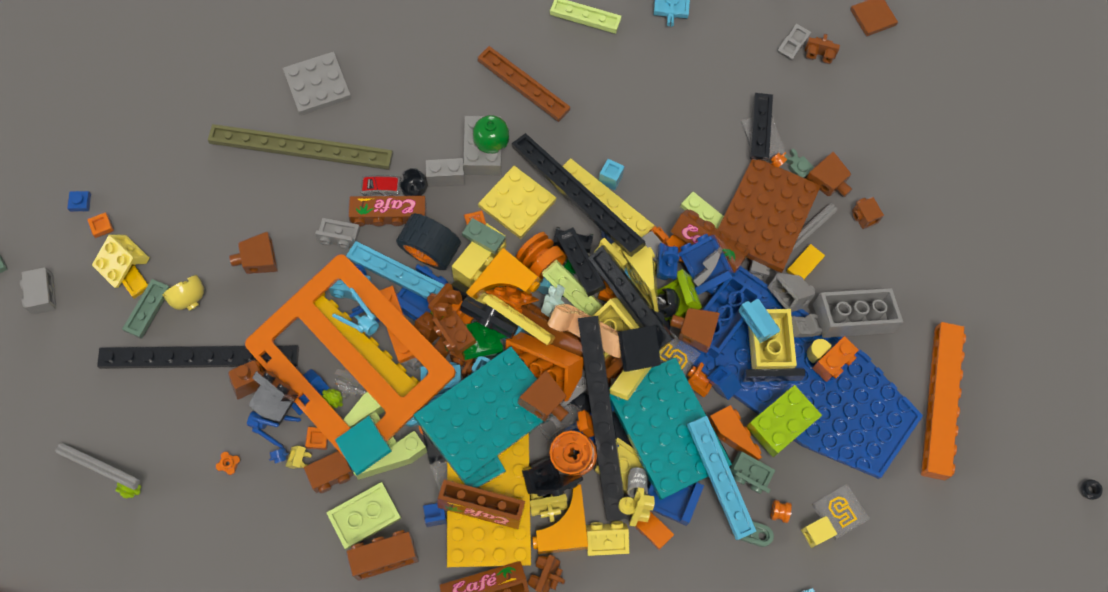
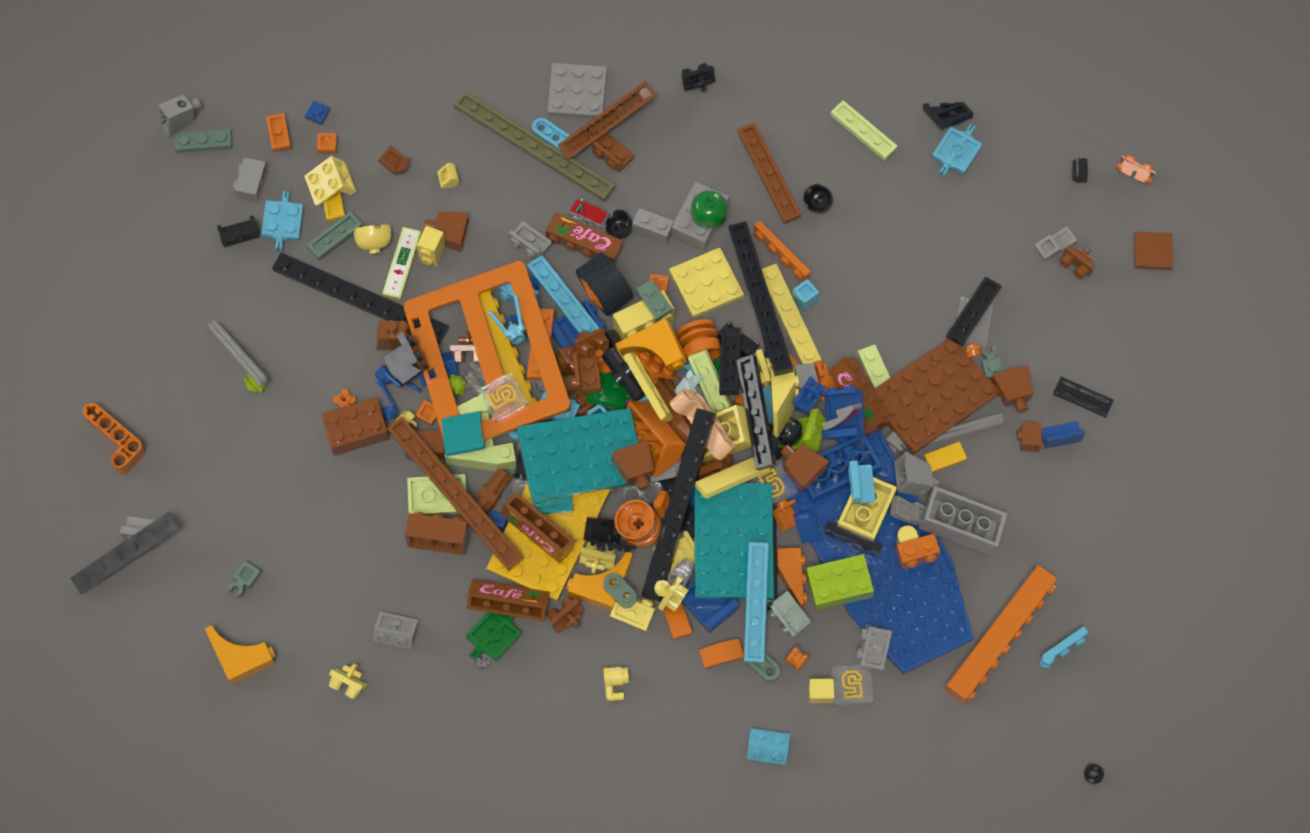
camera: 30 degrees right, 0 degrees up
(47, 235) = (278, 132): none -> orange plate
(48, 347) = (238, 232): none -> black hinge
(87, 316) = (282, 220): none -> medium azure plate
(173, 214) = (393, 161): none -> dark orange bracket
(225, 307) = (401, 263): none -> tile
(232, 206) = (448, 176): none -> light yellow brick
(246, 277) = (431, 246): none -> light yellow brick
(250, 485) = (355, 426): none -> dark orange brick
(311, 127) = (549, 133): none -> medium azure plate
(319, 366) = (458, 350): none -> hips
(357, 96) = (606, 120): none -> dark orange slope
(375, 123) = (612, 152): none -> dark orange bracket
(383, 508) = (455, 493): none -> dark orange plate
(385, 391) = (503, 397): none -> clear tile
(414, 493) = (490, 494): none -> dark orange piece
(420, 29) = (698, 78): none -> black hips
(569, 145) = (785, 256): none -> orange plate
(578, 87) = (818, 198): none -> black hair
(588, 526) = (619, 590): none -> sand green plate
(639, 348) = (738, 458): black tile -> none
(710, 540) = (722, 653): none -> orange slope
(844, 467) = (873, 647): none -> light grey bracket
(888, 159) = (1083, 397): none -> black tile
(893, 197) = (1062, 435): none -> blue panel
(1001, 386) = (1063, 648): none -> medium azure plate

